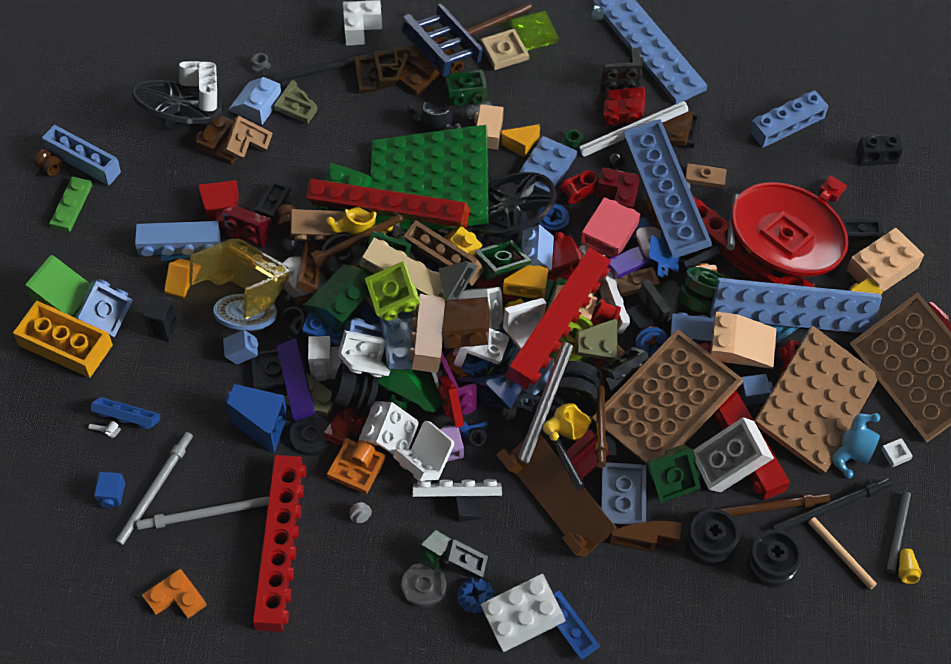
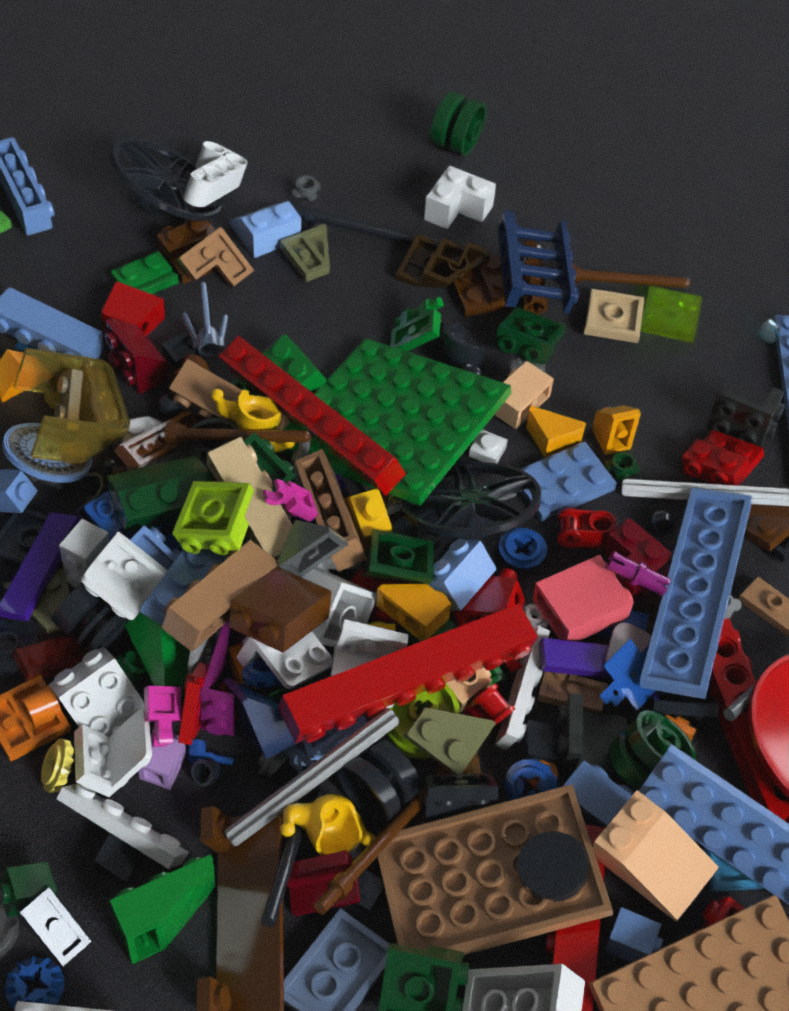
camera: 30 degrees right, 5 degrees down
(205, 171) = (147, 274): none -> green plate
(232, 273) = (70, 388): none -> dark tan plate
(284, 190) = (208, 340): none -> sand blue plant
(397, 487) = (57, 765): none -> light yellow gear
(403, 119) = (417, 325): none -> green plate
(426, 257) = (295, 499): none -> dark pink plate
(439, 413) = (162, 707): none -> dark pink plate
(494, 169) = (488, 447): none -> white plate
(511, 524) = (159, 909): none -> green slope
(555, 117) = (616, 428): none -> light orange slope
(632, 196) = (637, 573): none -> magenta pin
(698, 375) = (553, 866): none -> black tile

